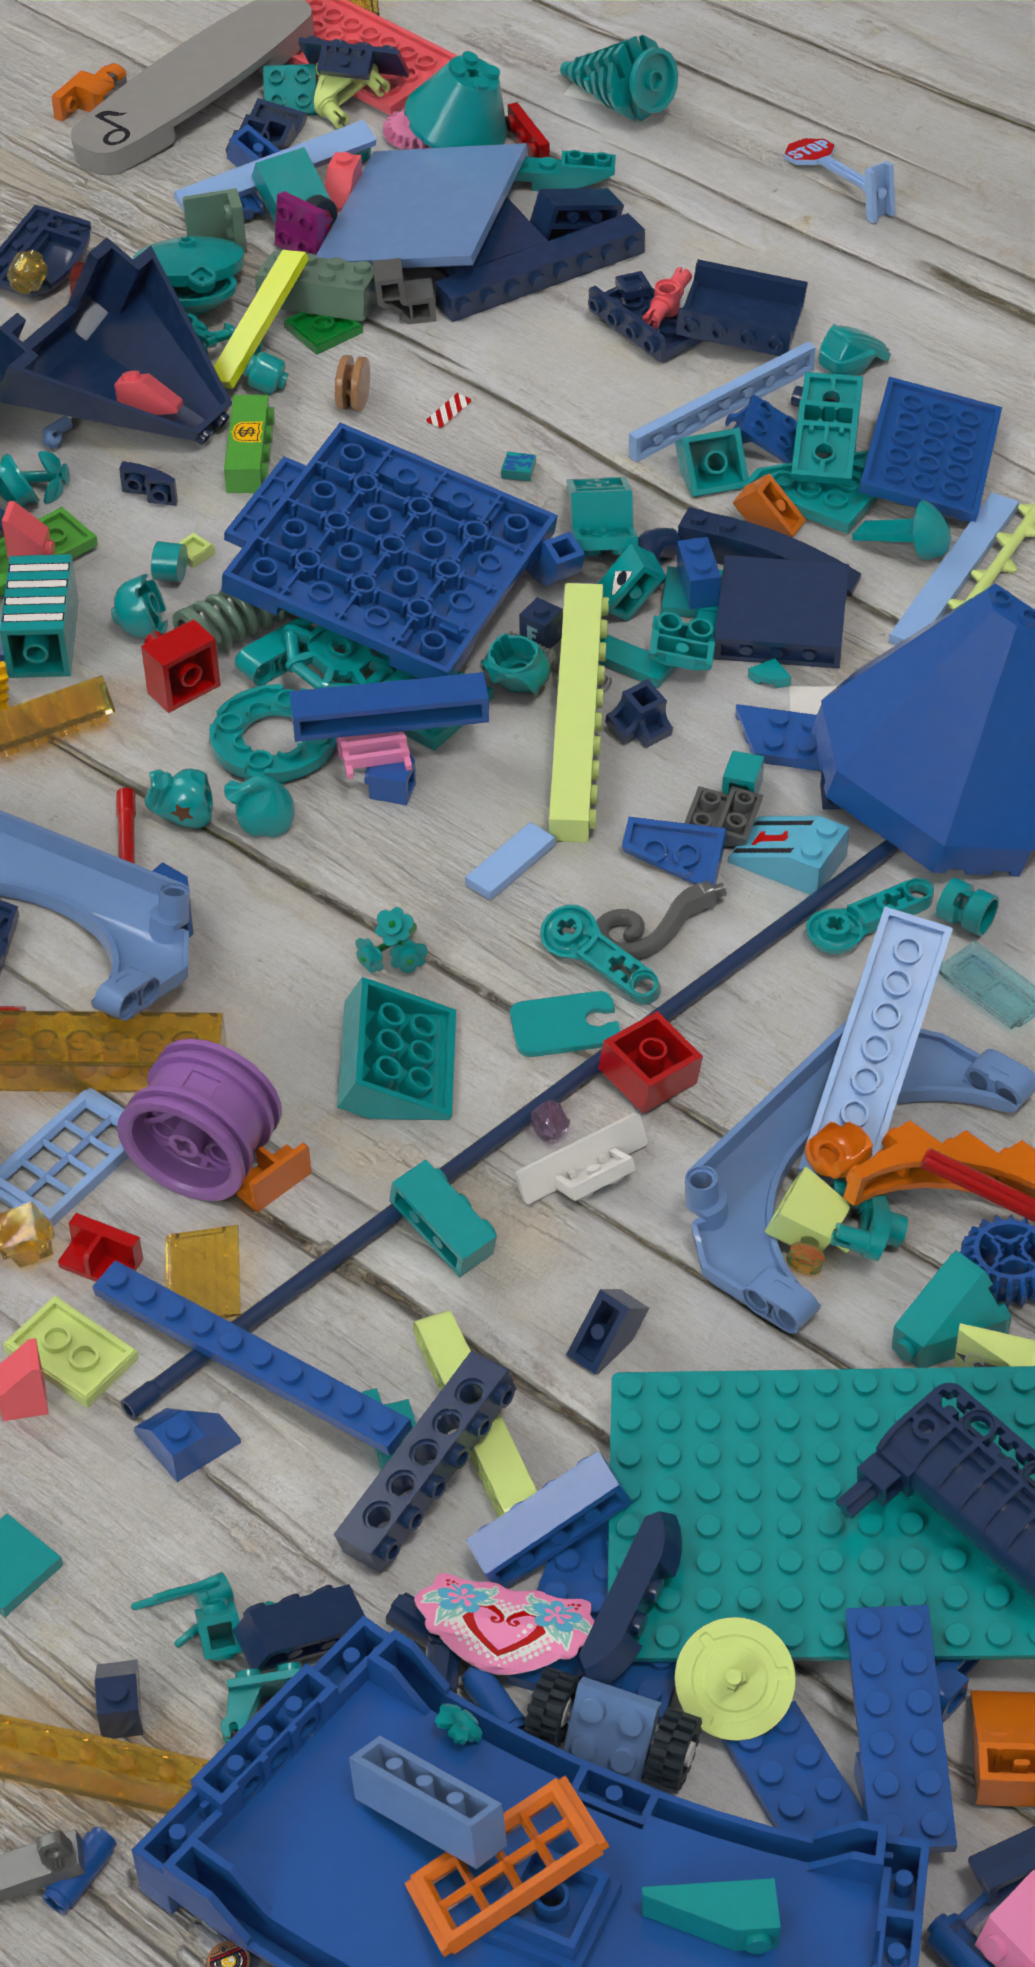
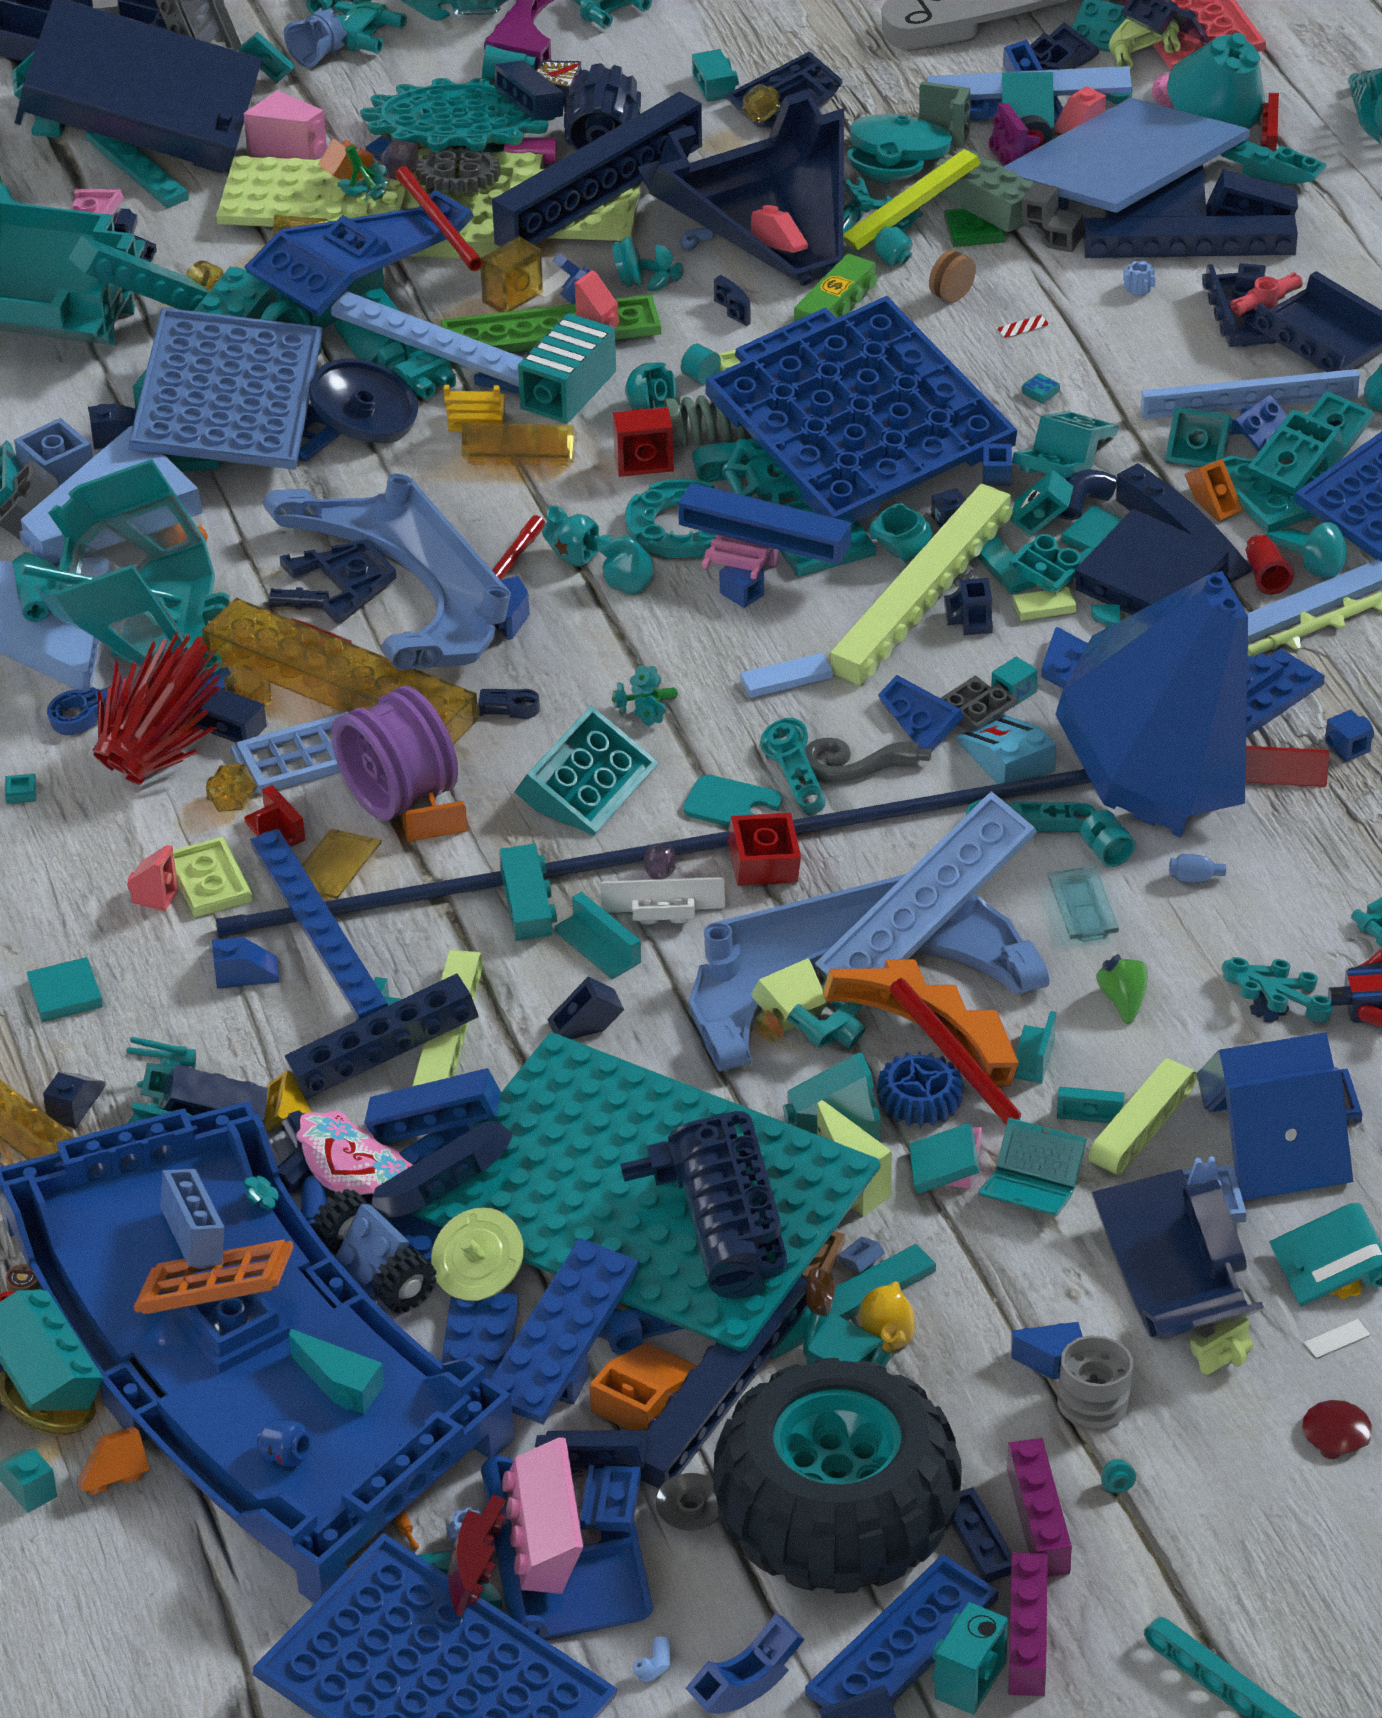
camera: 30 degrees right, 5 degrees down
(243, 1008) = (506, 702): none -> dark blue piece
(367, 1583) = (283, 1098): none -> yellow slope
(527, 323) = (1139, 278): none -> light blue gear
(552, 1234) = (600, 937): none -> teal panel
(698, 573) = (1104, 513): blue brick -> none
(700, 686) = (1044, 604): none -> yellowish green tile
(838, 1149) = (842, 954): orange hair -> none
(881, 564) = (1269, 567): none -> red plant

